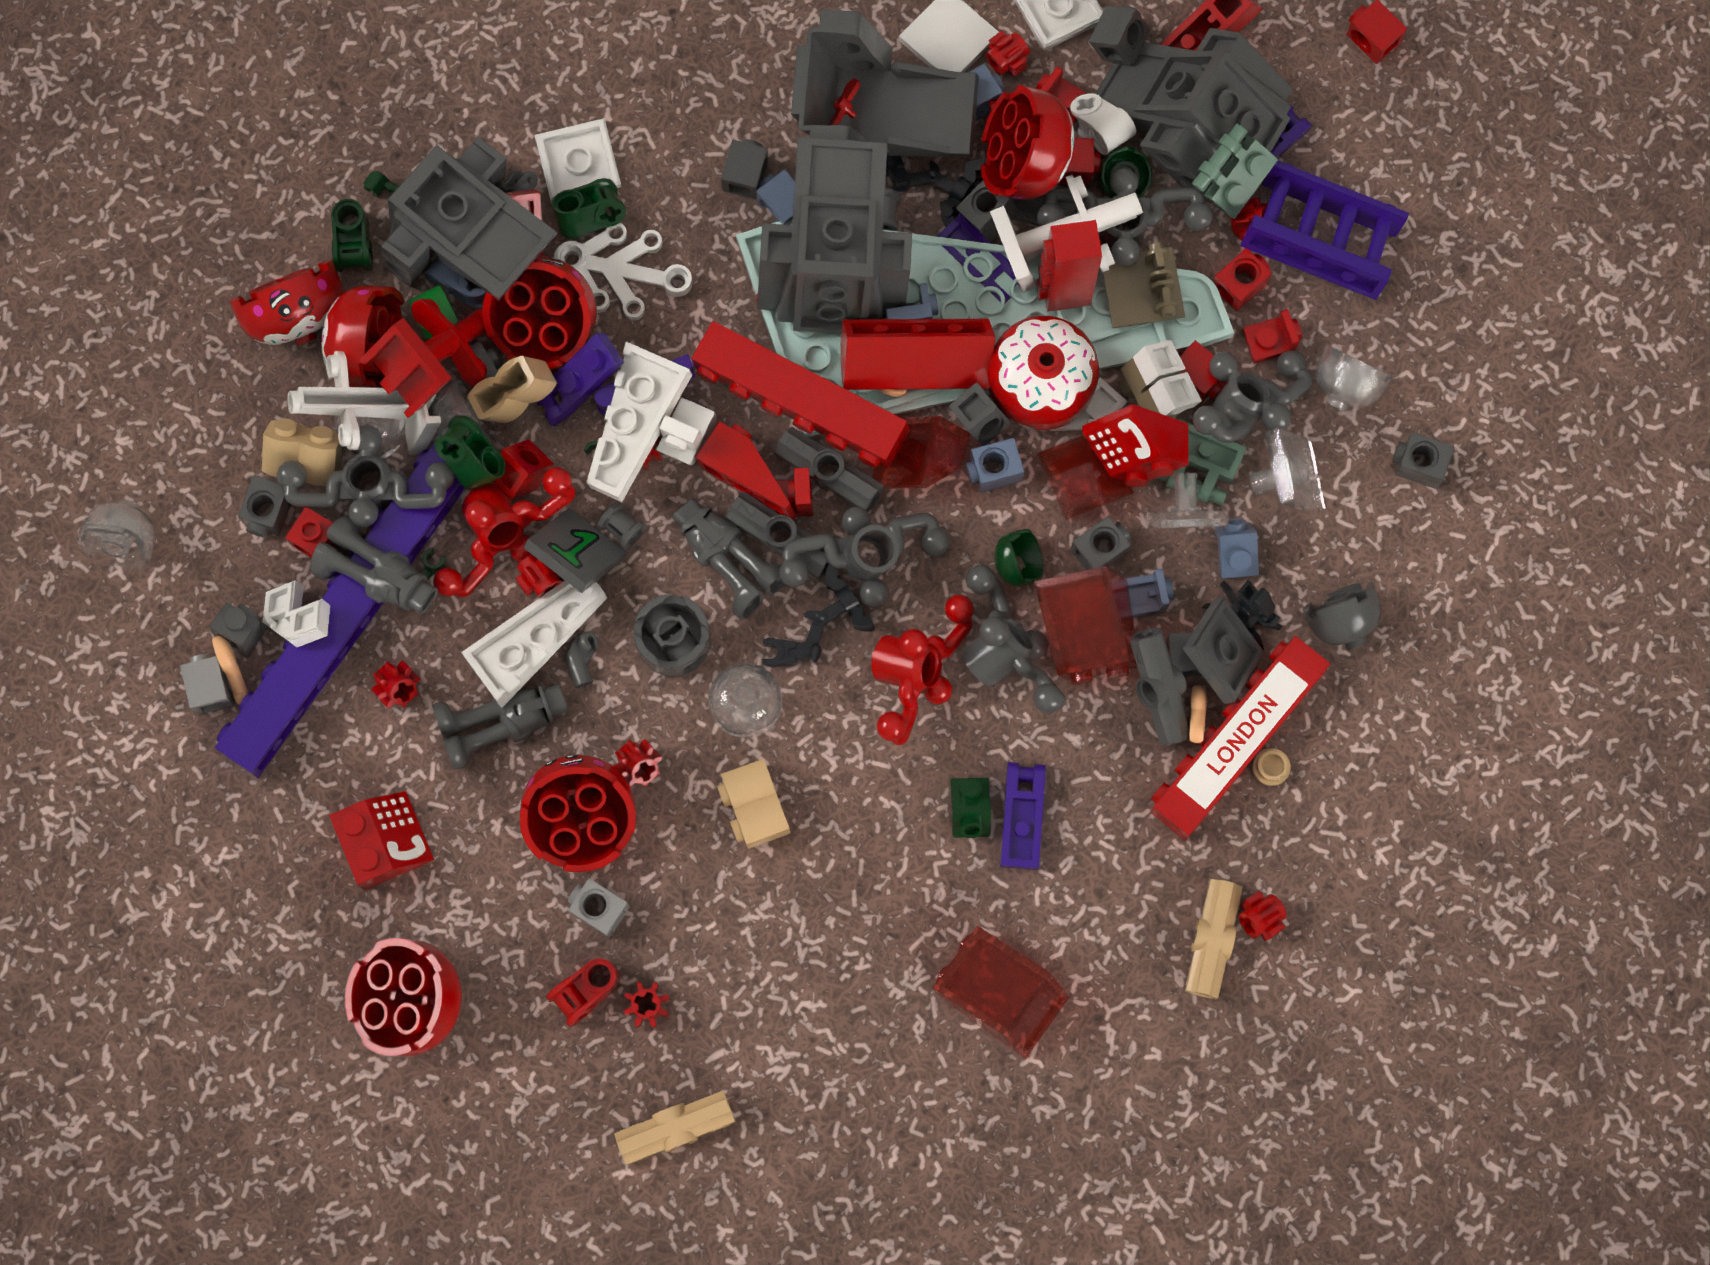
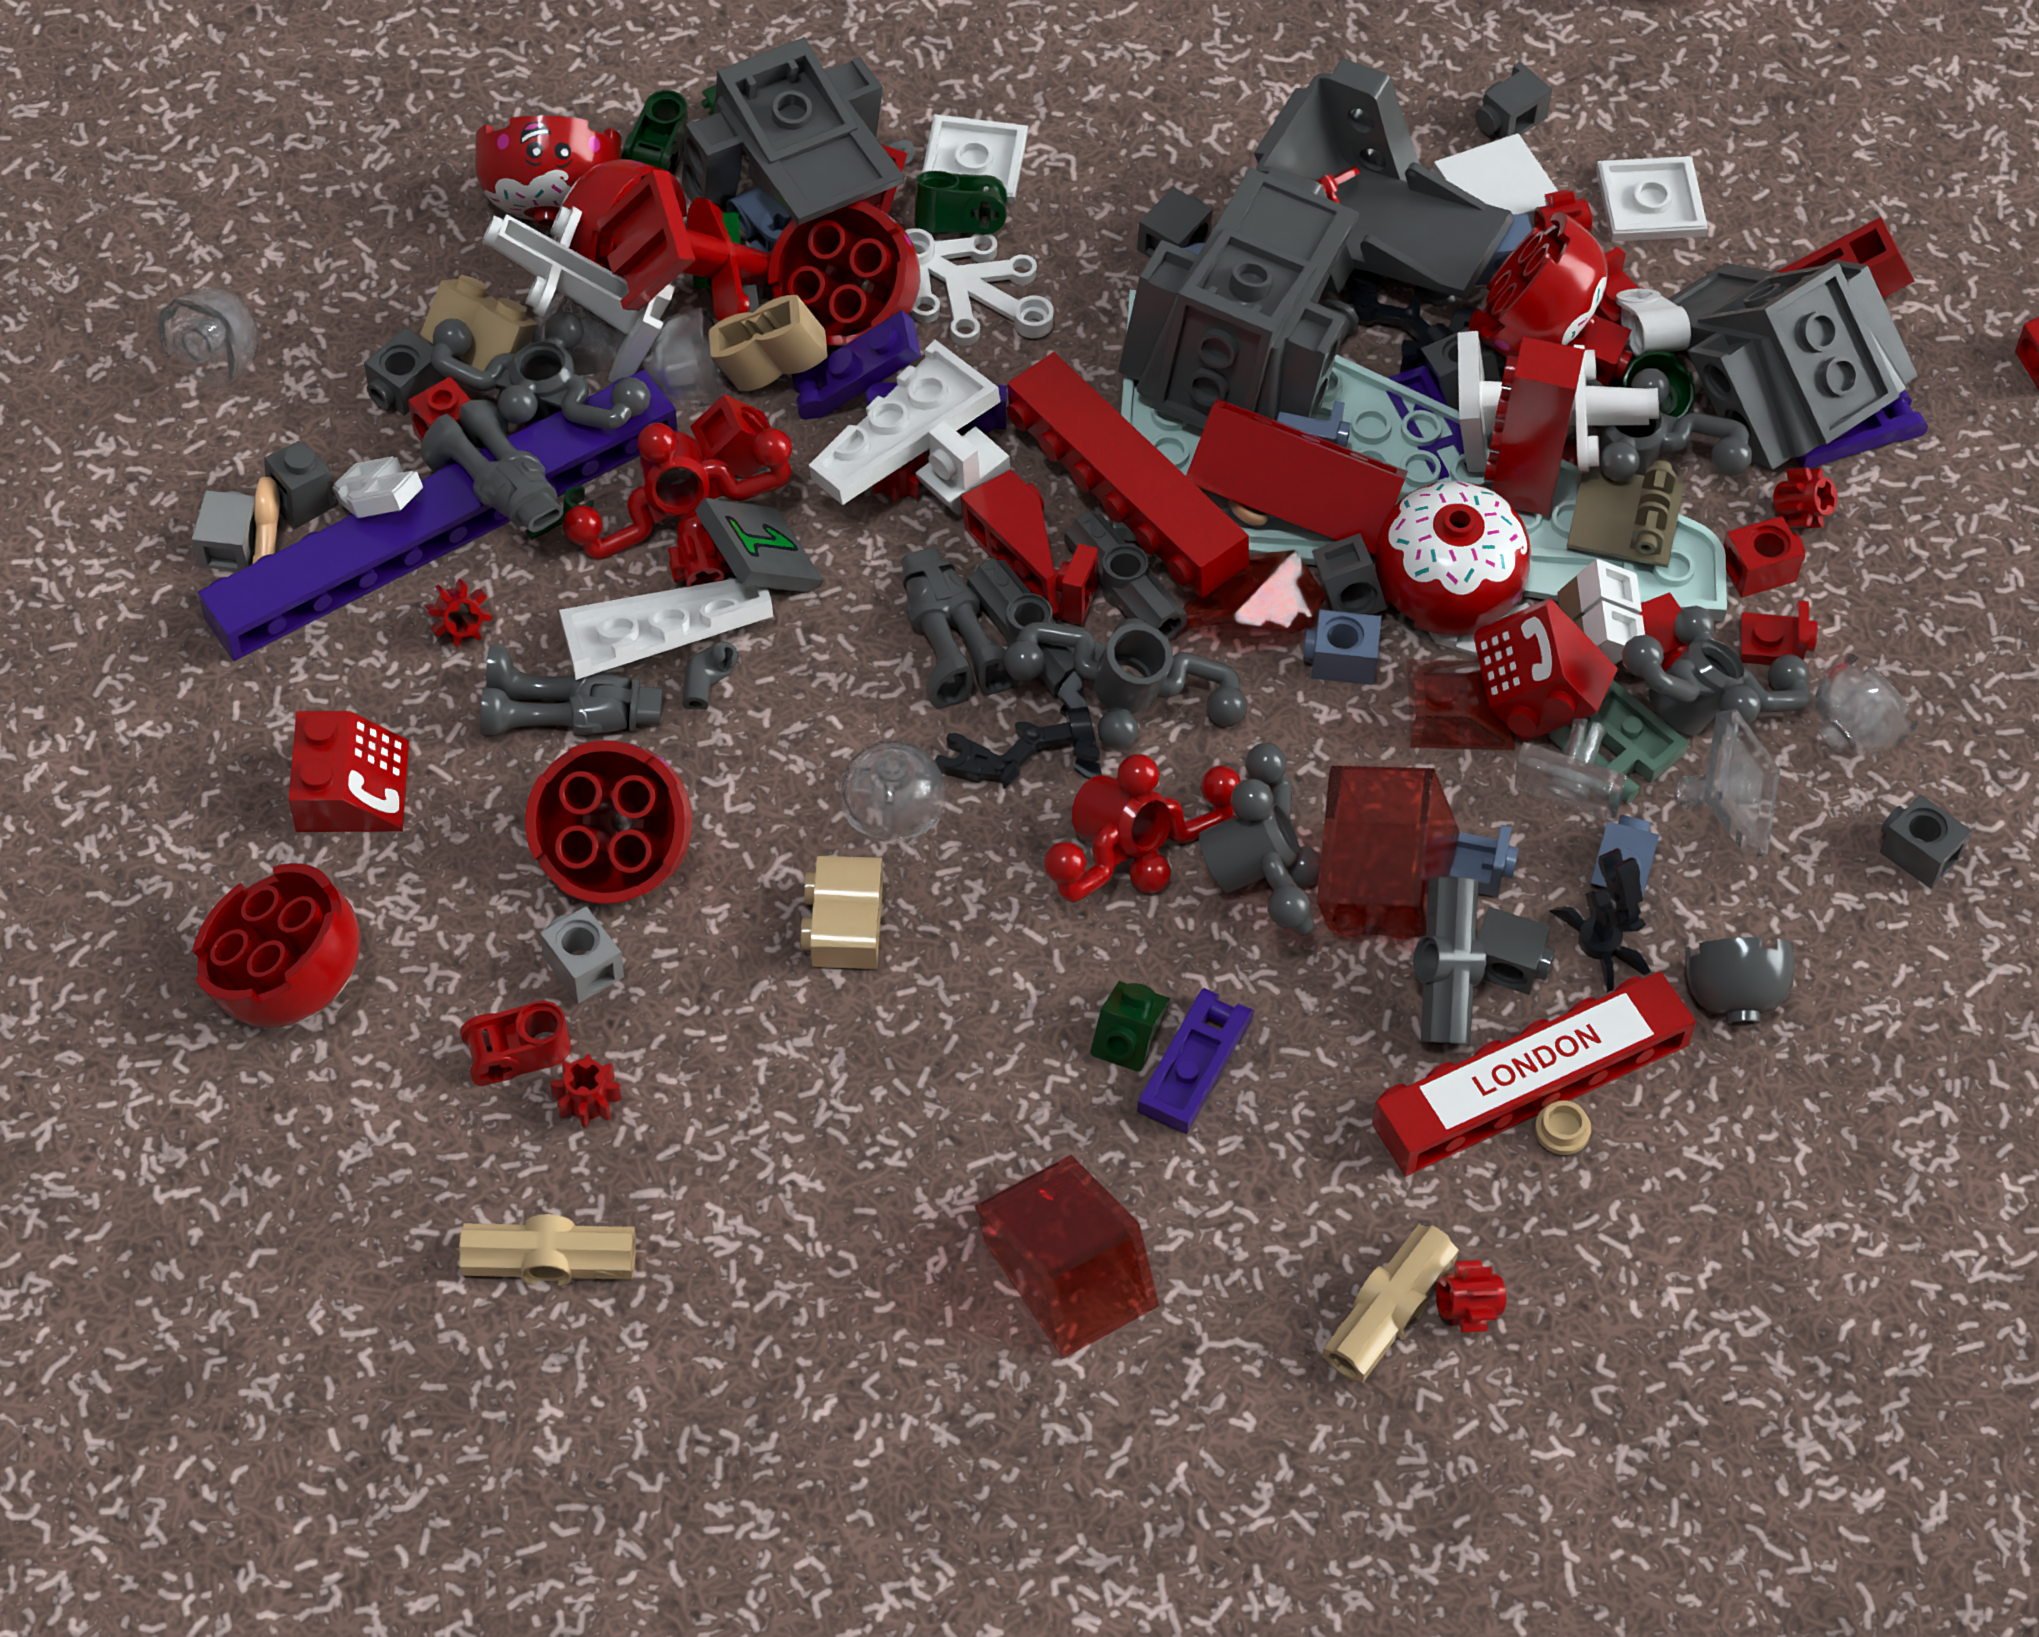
camera: 20 degrees right, 20 degrees down
(469, 457) = (681, 385): dark green piece -> none
(622, 525) = (832, 546): dark grey bush -> none
(638, 762) = (727, 817): red gear -> none
(672, 635) = (833, 681): dark grey brick -> none
(1021, 544) = (1325, 743): dark green hair -> none
(1106, 529) = (1457, 770): dark grey brick -> none
(1119, 35) = (1715, 246): dark grey brick -> none
(1198, 714) = (1489, 1021): light nougat piece -> none
(1223, 650) = (1554, 951): dark grey tile -> none
(1240, 176) = (1807, 427): sand green plate -> none
(1312, 255) = (1876, 555): dark purple fence -> none

